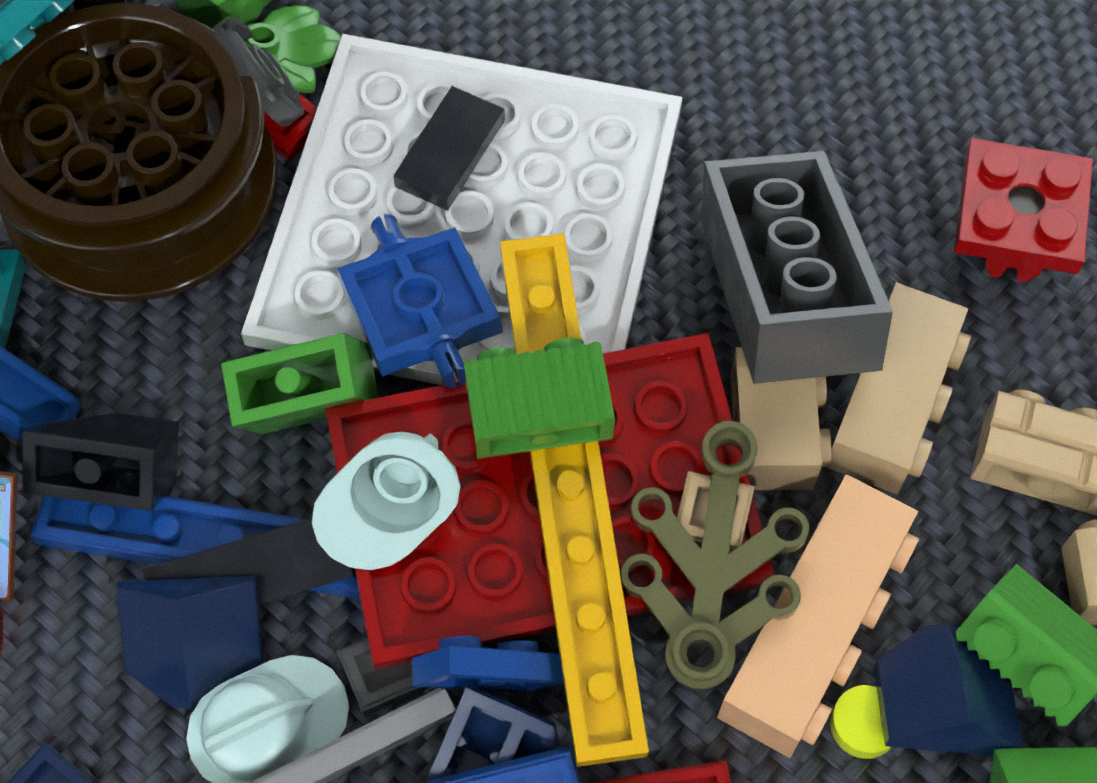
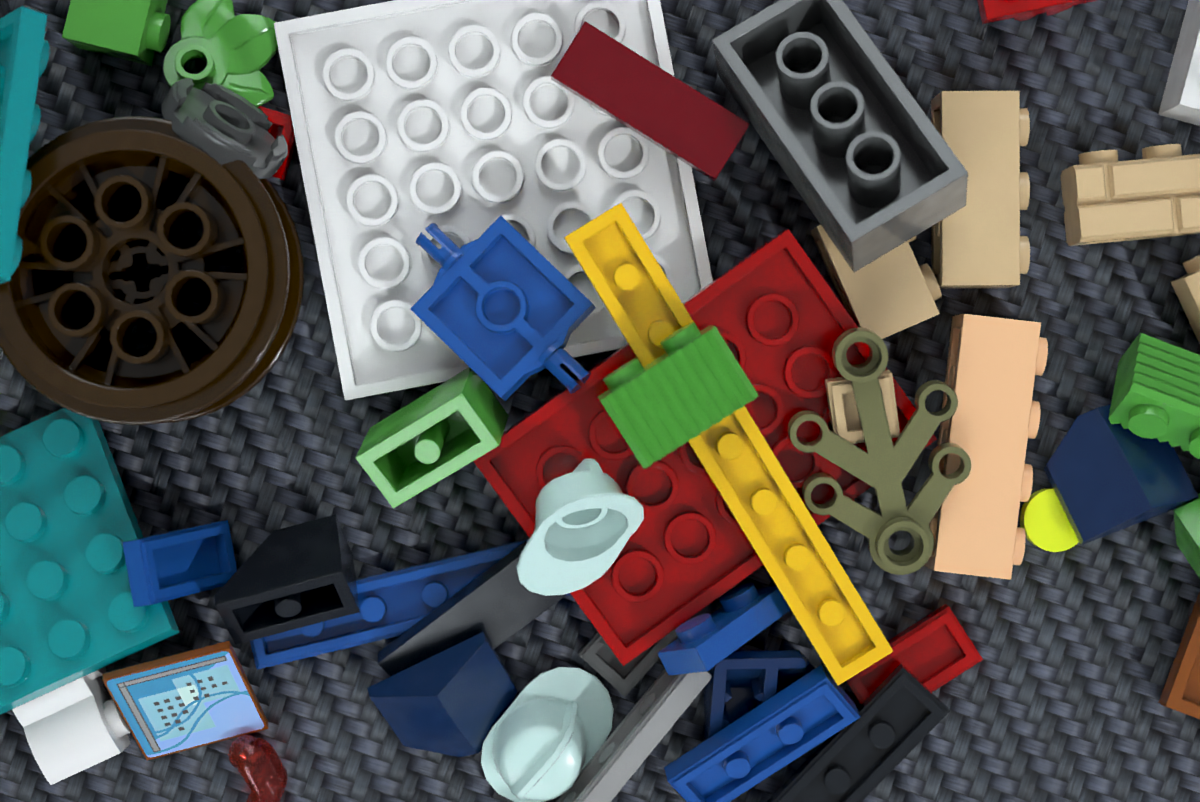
camera: 25 degrees left, 25 degrees up
(449, 148) = (449, 118): black tile -> none
(630, 199) = (649, 101): none -> dark red tile

